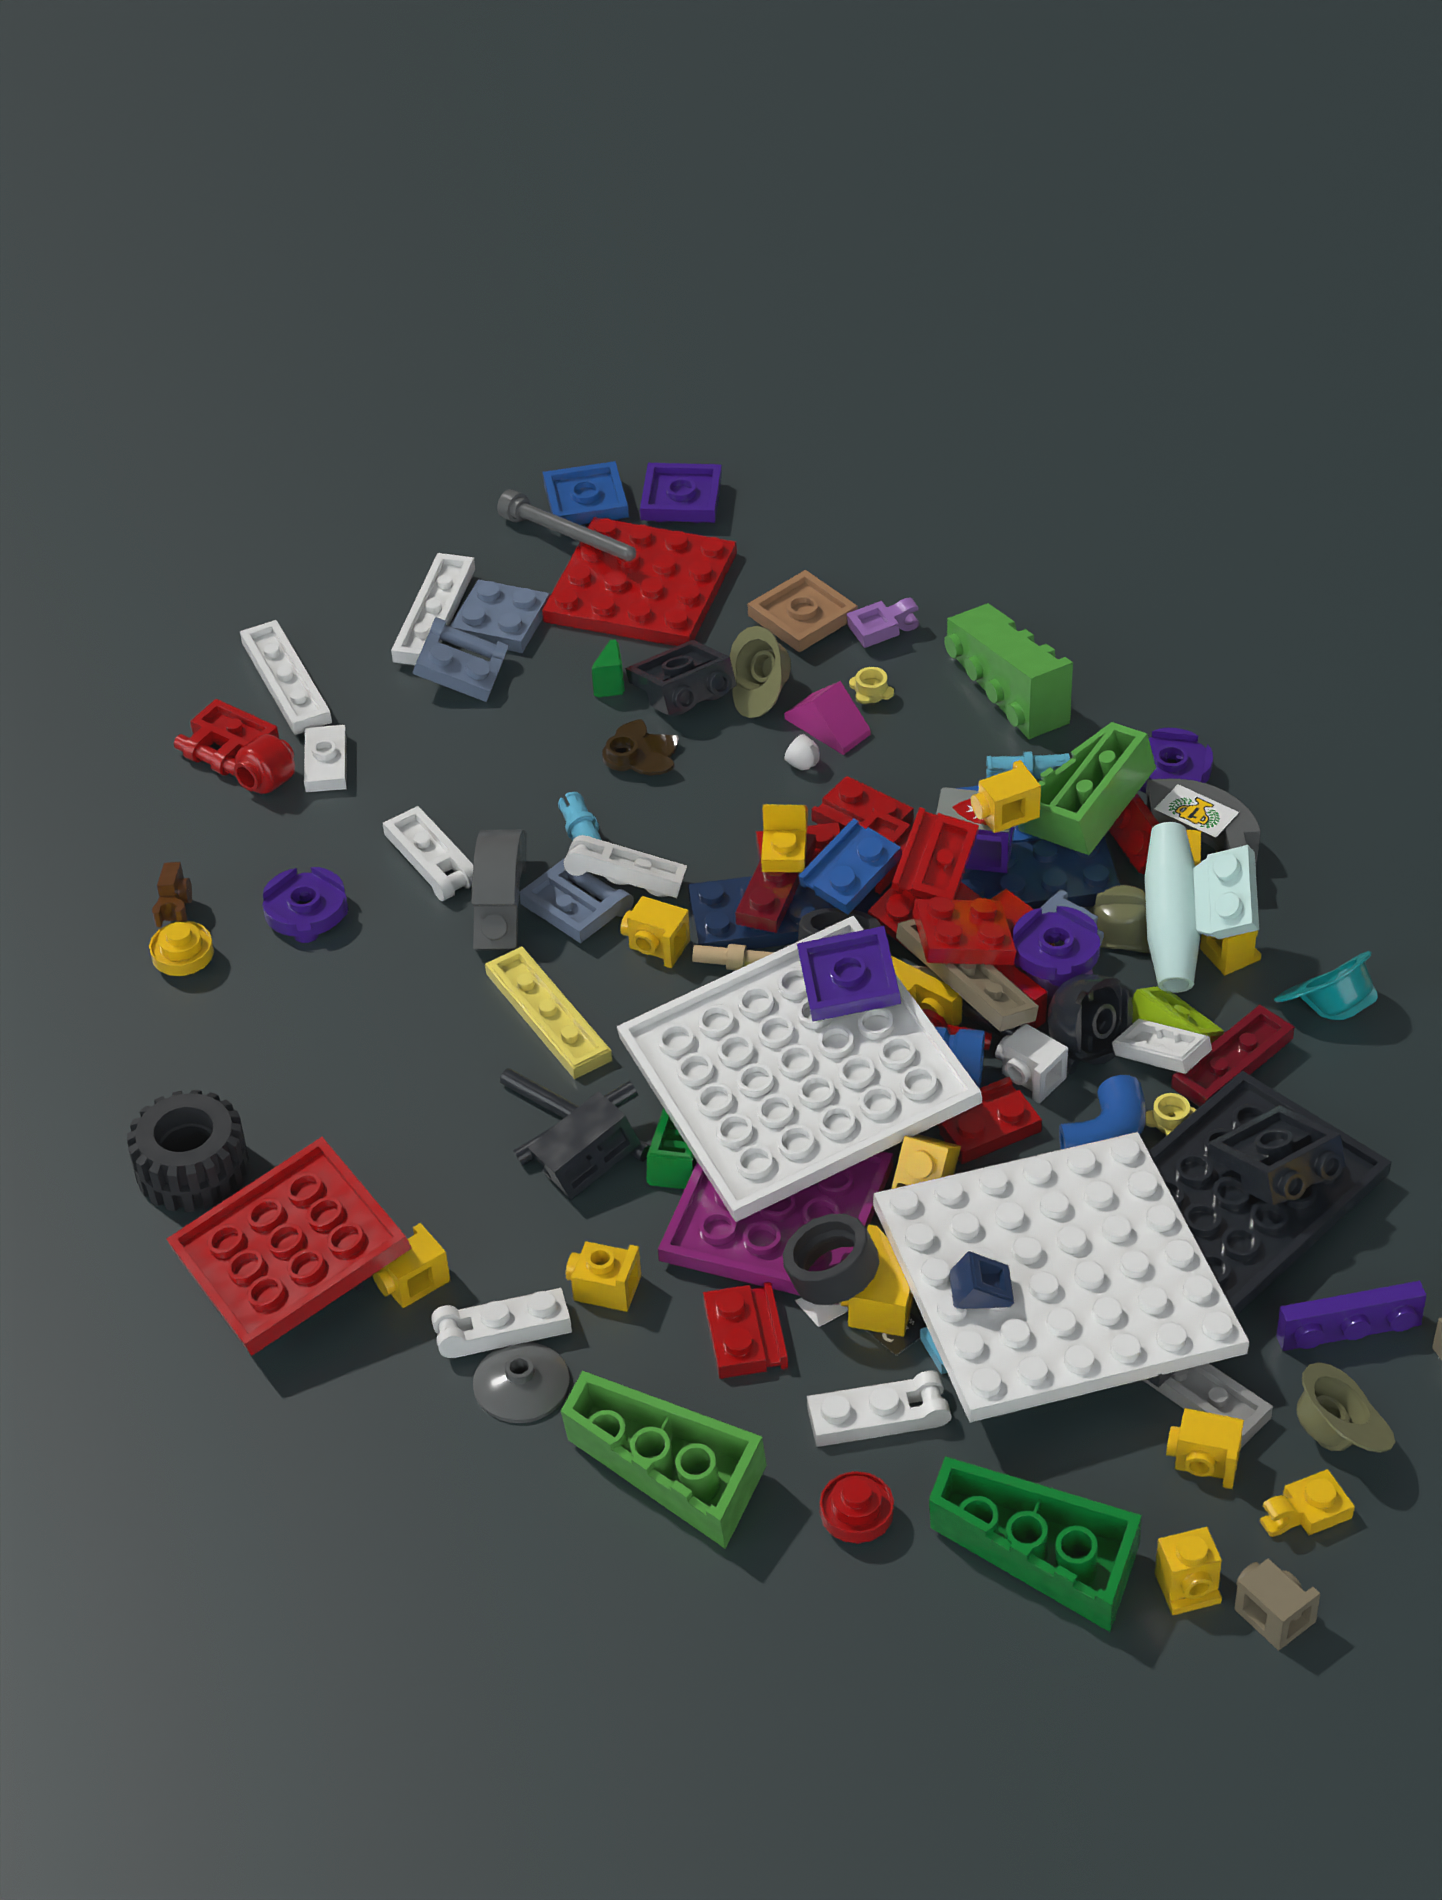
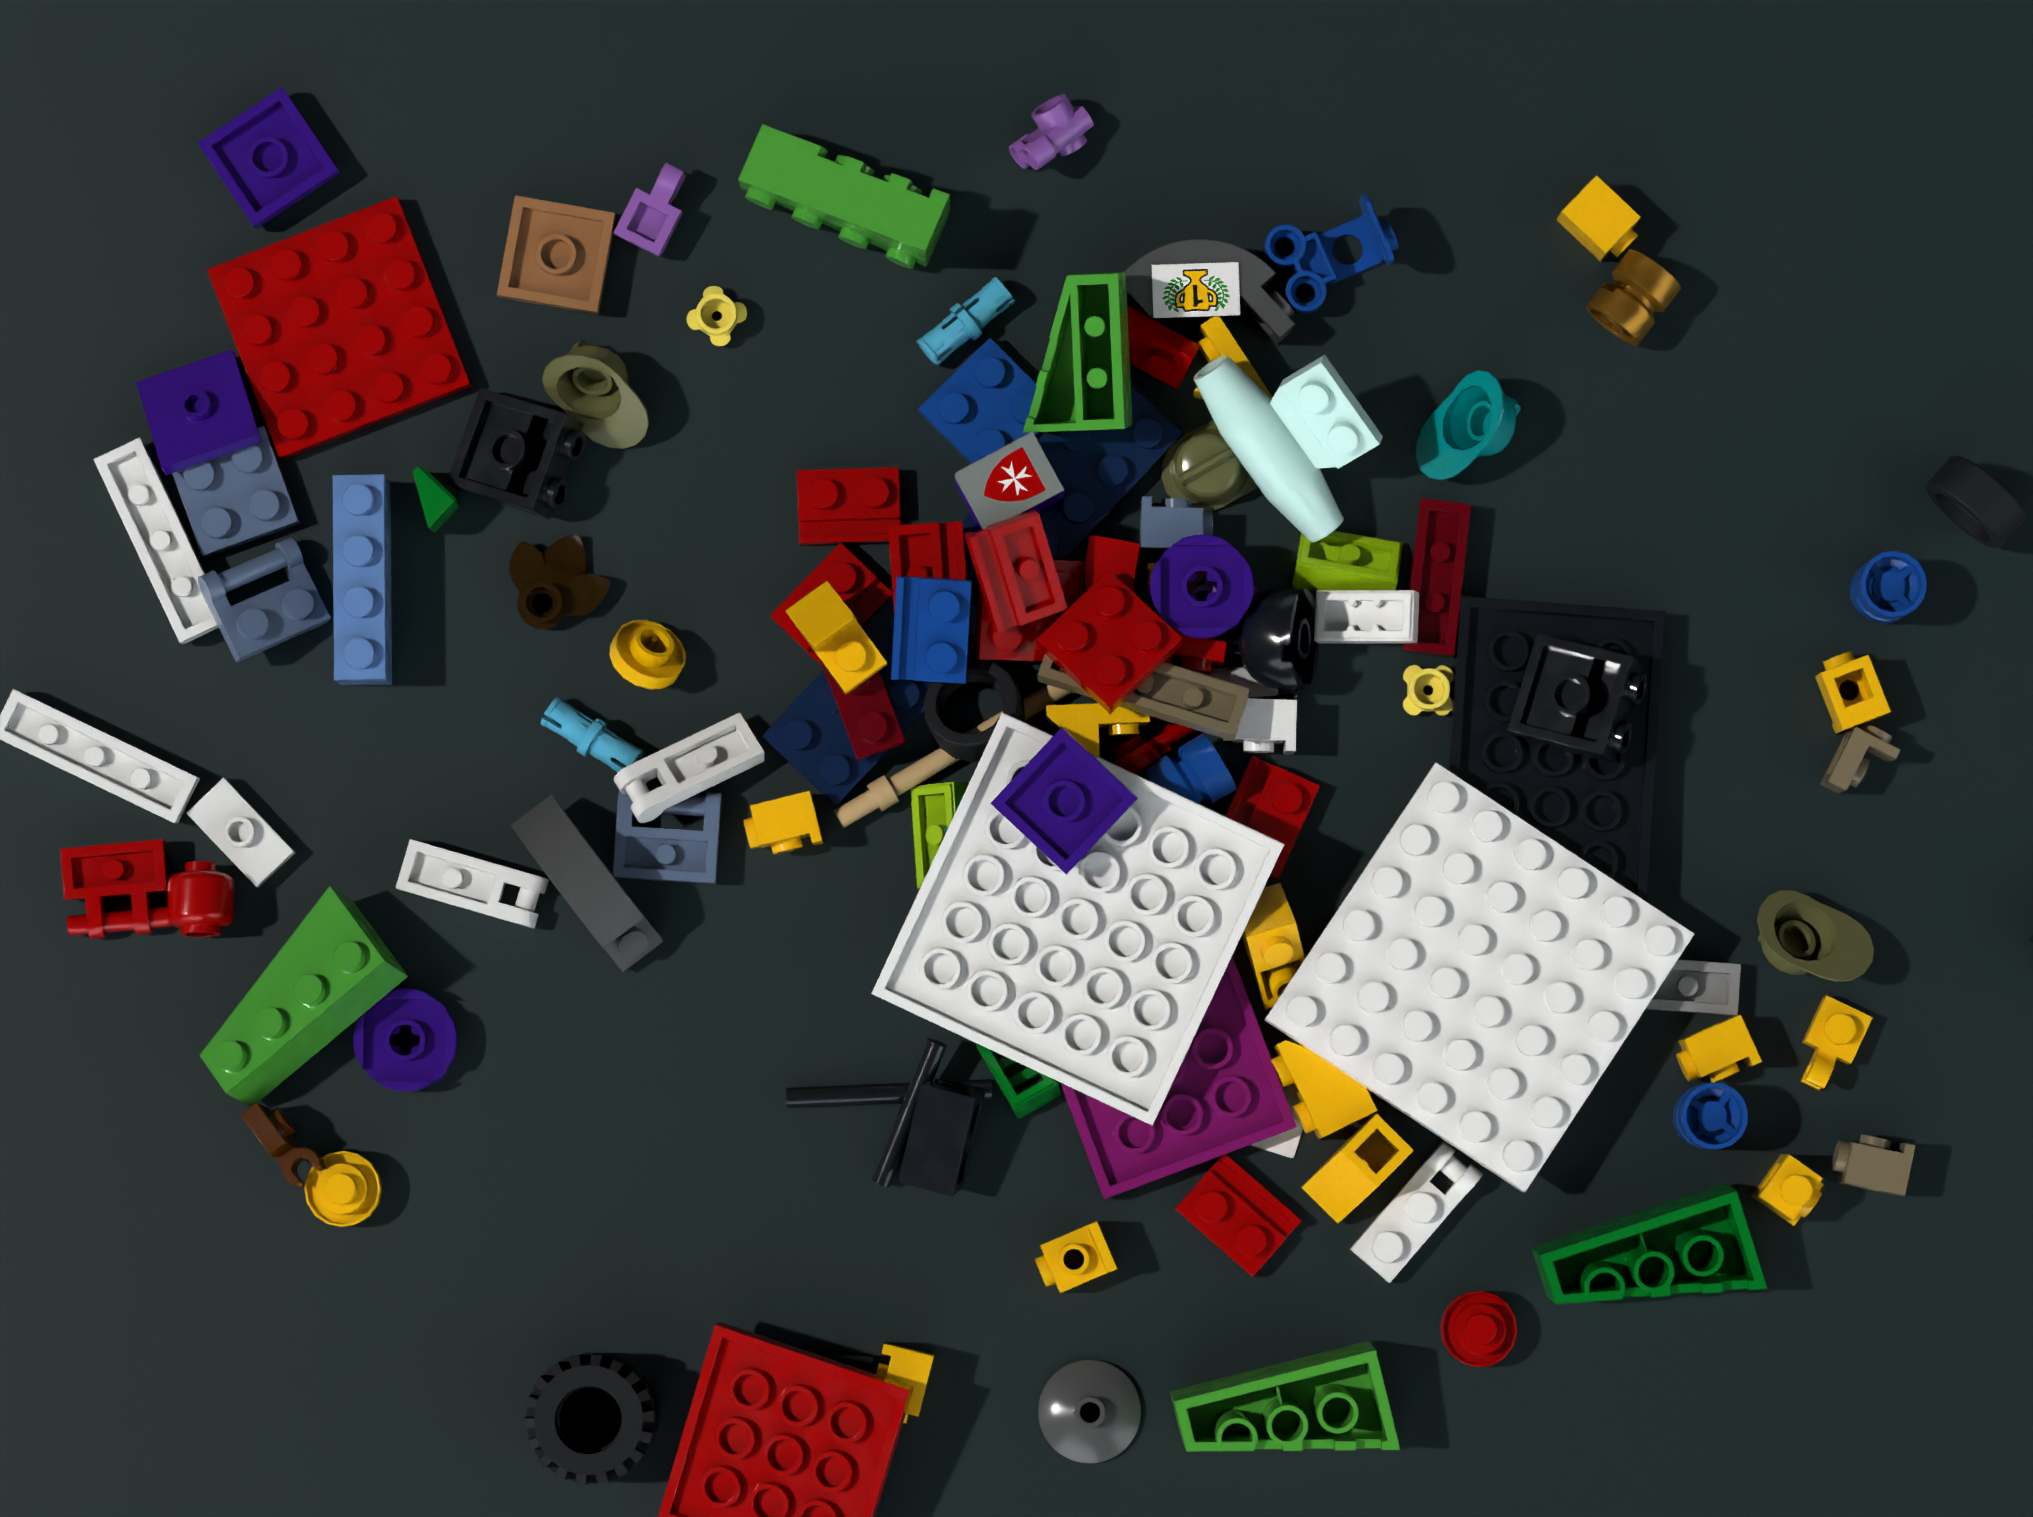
camera: 45 degrees left, 40 degrees up
(264, 835) = (303, 999): none -> bright green wedge
(500, 1323) = (1028, 1371): white plate -> none
(517, 507) = (107, 316): dark grey piece -> none
(518, 566) = (199, 412): none -> dark purple plate
(526, 680) = (362, 580): none -> medium blue brick
(548, 1012) = (757, 991): light yellow tile -> none
(586, 493) = (165, 239): blue plate -> none
(658, 802) = (647, 654): none -> yellow plate
(802, 753) = (728, 470): white hinge -> none
(830, 718) = (708, 396): dark pink slope -> none
(845, 1278) = (1246, 1129): black tyre -> none
(861, 1341) = (1357, 1168): none -> yellow slope
(980, 1283) = (1443, 1061): dark blue slope -> none
(1008, 798) = (1043, 462): yellow brick -> none
(1121, 1114) = (1396, 756): blue cylinder -> none
(1164, 1478) = (1710, 1116): none -> blue wheel
(1176, 708) = (1059, 130): none -> medium lavender plate
(1191, 757) = (1129, 222): dark purple plate -> none
(1287, 855) = (1314, 256): none -> blue piece
(1351, 1316) = (1745, 818): dark purple plate -> none

